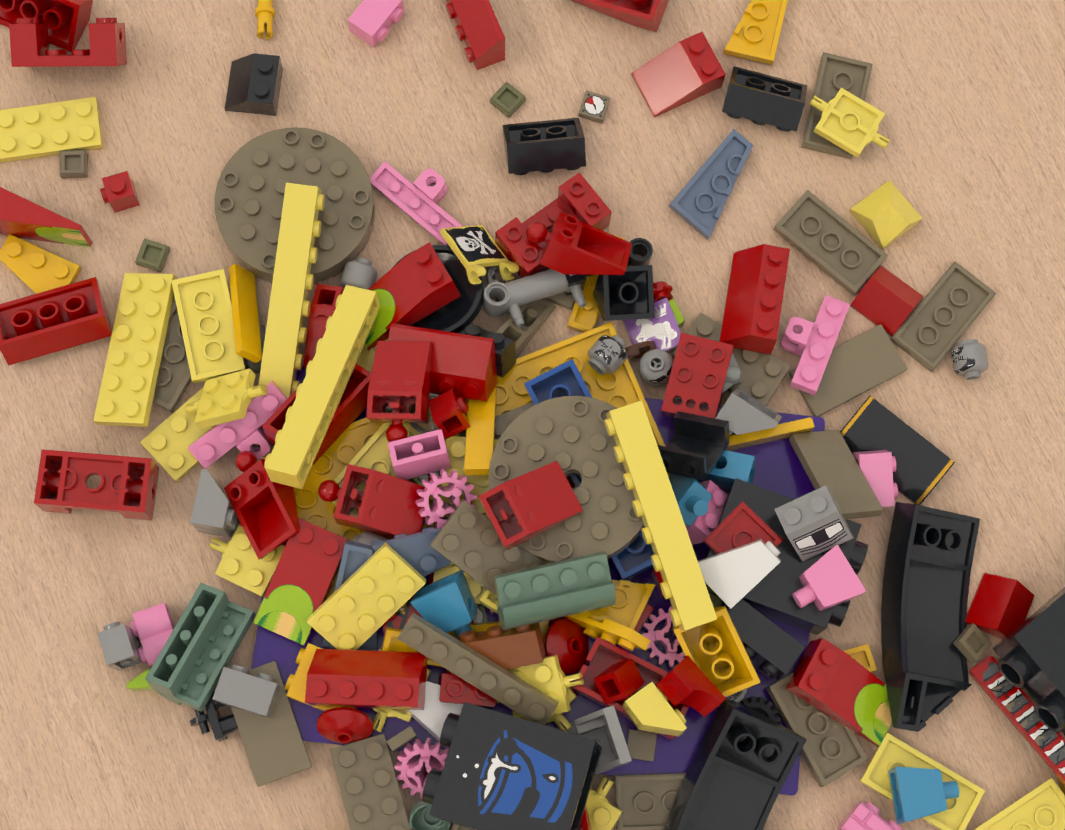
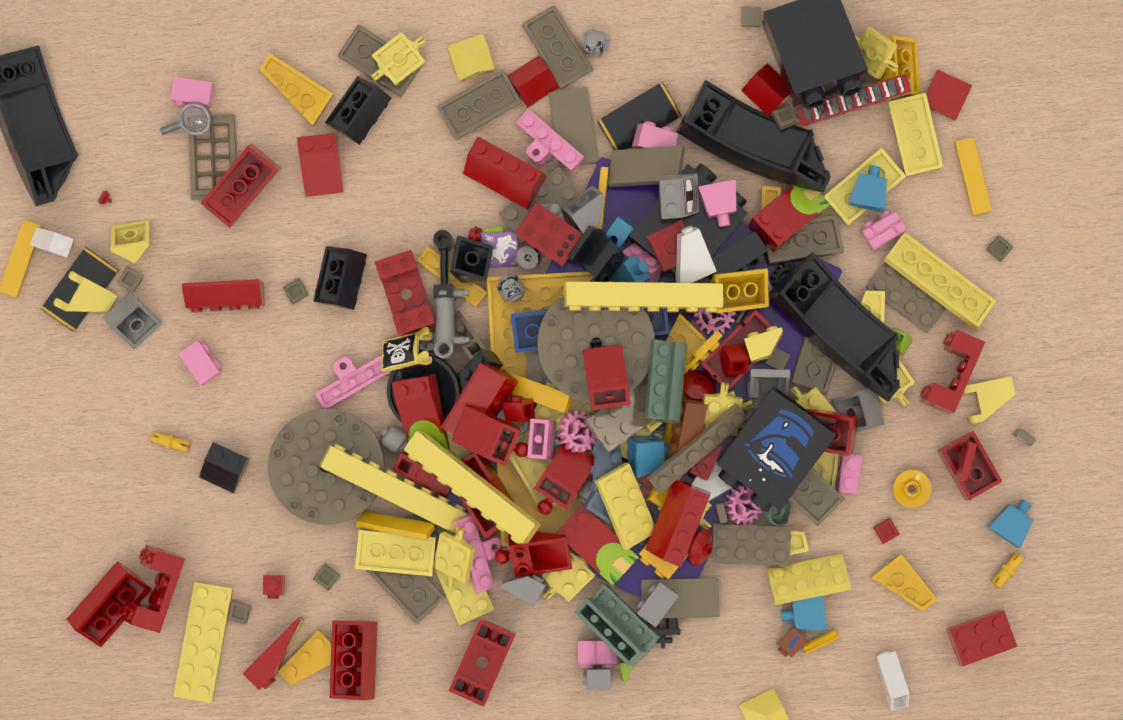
camera: 65 degrees left, 10 degrees up
(135, 350) = (393, 608): light yellow plate -> none
(580, 248) = (431, 280): red slope -> none
(594, 107) = (322, 232): tile -> none
(637, 350) = (511, 263): reddish brown tile -> none
(691, 687) = (754, 315): red arch -> none
(708, 190) = (409, 171): sand blue wing -> none

